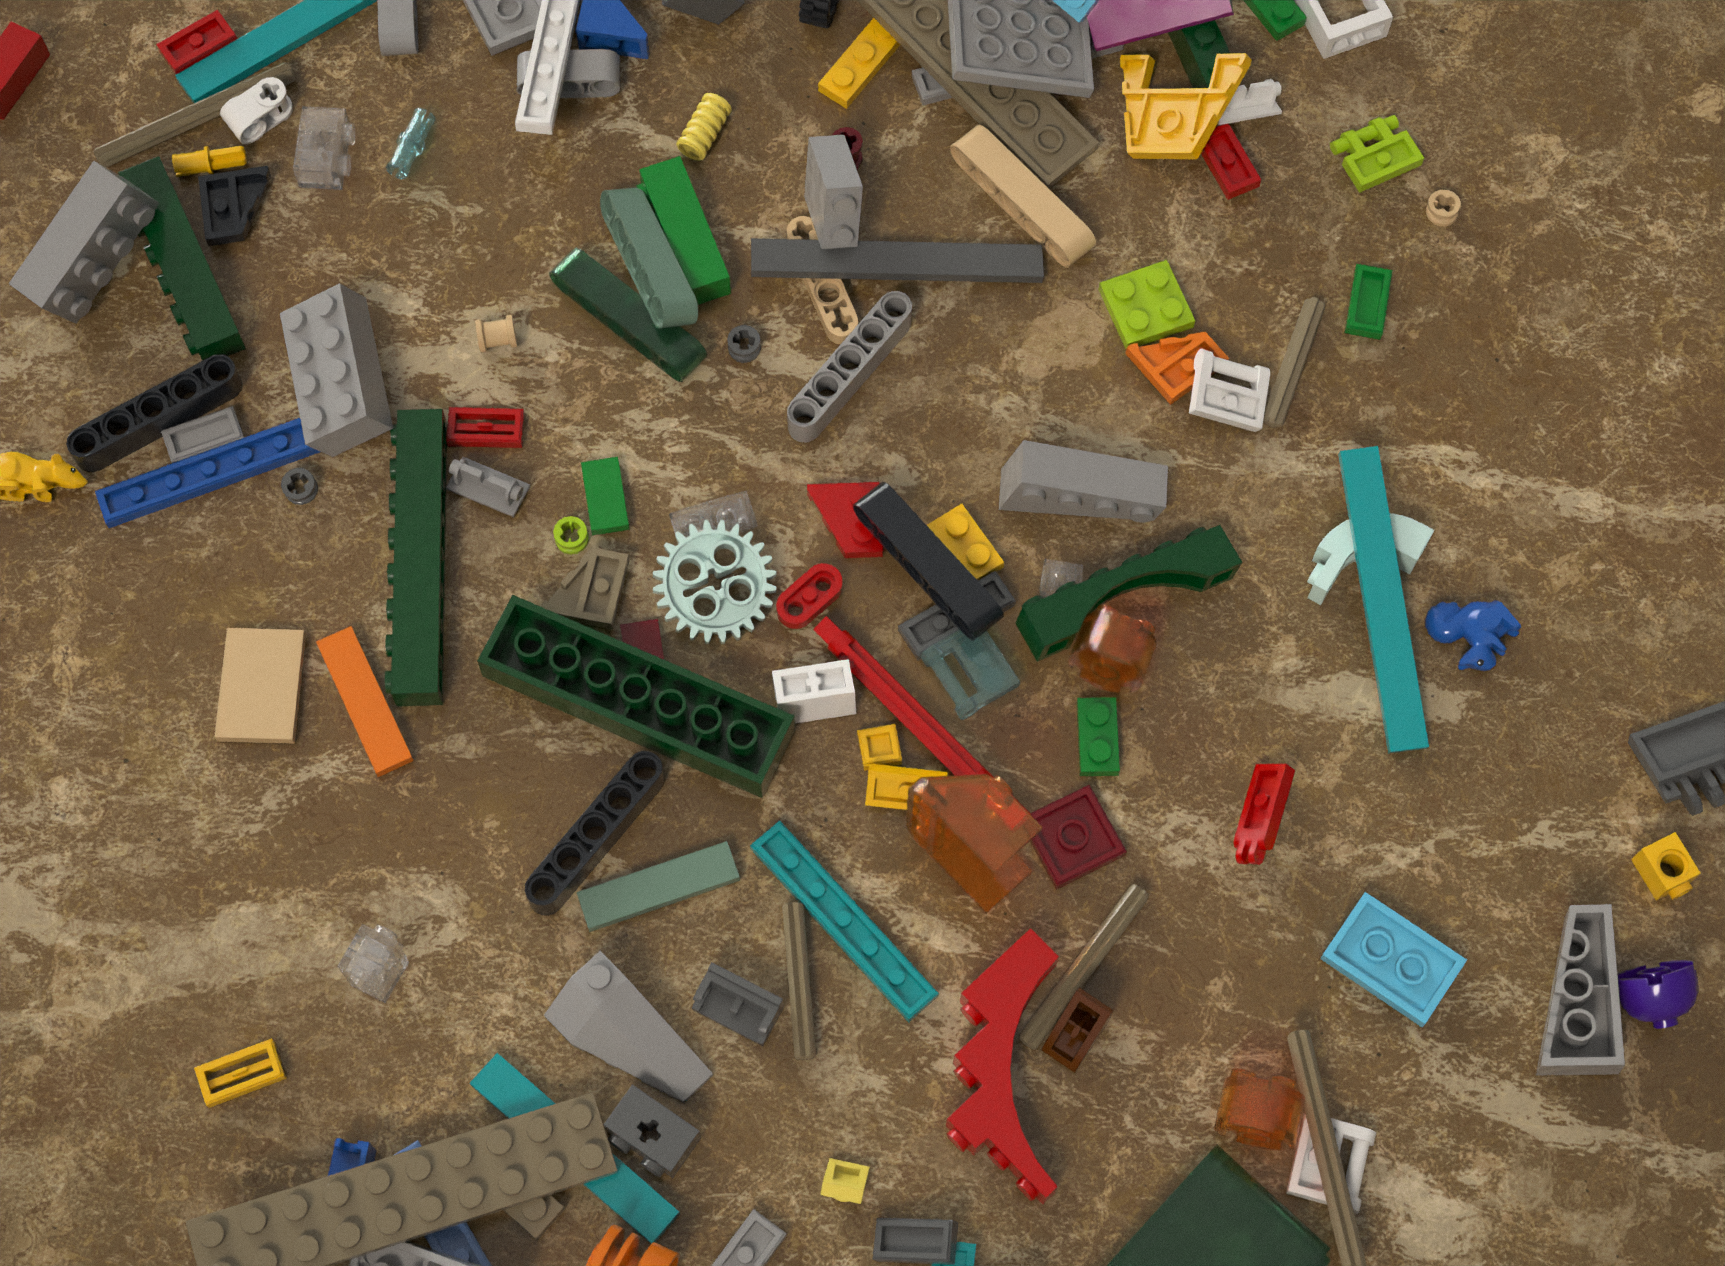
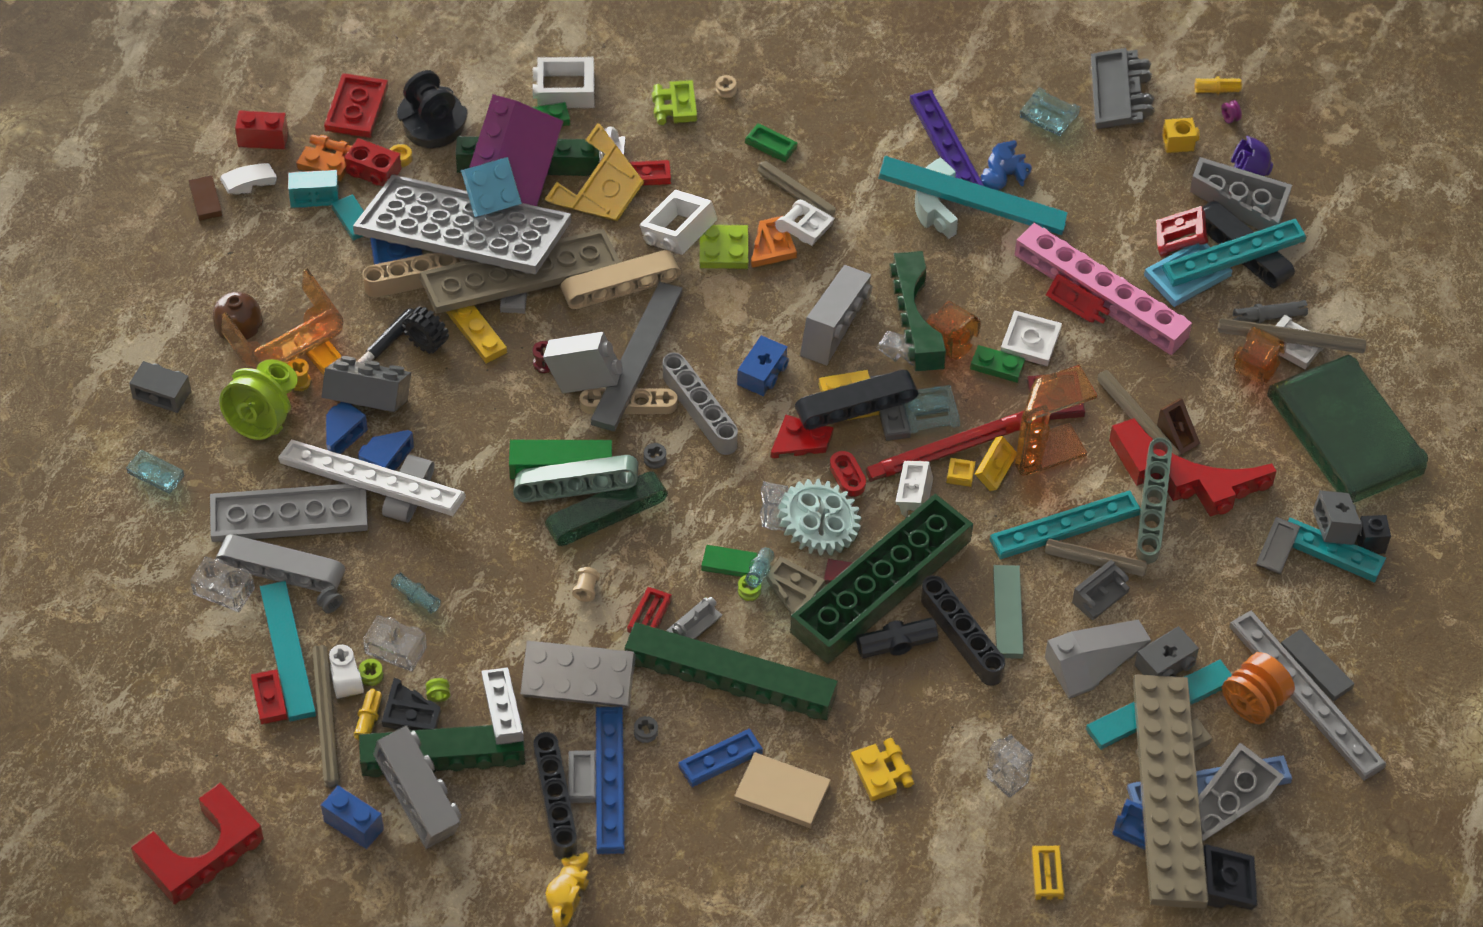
camera: 70 degrees left, 15 degrees down
(44, 193) = (352, 817): none -> blue brick
(255, 301) = (502, 706): none -> tile
(270, 222) = (438, 690): none -> lime bush
(273, 131) = (371, 680): none -> lime bush
(287, 592) = (720, 757): none -> blue tile
(329, 792) = (874, 773): none -> yellow plate
(362, 52) = (329, 600): none -> dark grey bush
(364, 701) = (818, 734): orange tile -> none
(552, 750) = (897, 638): none -> black piece
(596, 533) = (759, 567): none -> clear light blue pin
(704, 126) = (487, 426): light yellow piece -> none
(845, 1181) = (1230, 569): light yellow plate -> none
(893, 1025) = (1157, 489): none -> sand green beam
(964, 413) = (762, 366): none -> blue brick
(1142, 247) = (700, 218): none -> white window
(1161, 767) = (1031, 337): none -> white plate
(1252, 968) = (1127, 303): none -> bright pink brick
(1363, 1093) = (1260, 313): none -> dark grey pin
(1452, 1016) = (1234, 252): none -> teal tile
(1474, 919) = (1178, 226): none -> red plate
(1485, 536) = (943, 135): none -> dark purple tile
(1489, 1028) = (1224, 227): none -> black beam
(1608, 656) = (1049, 112): none -> clear light blue plate

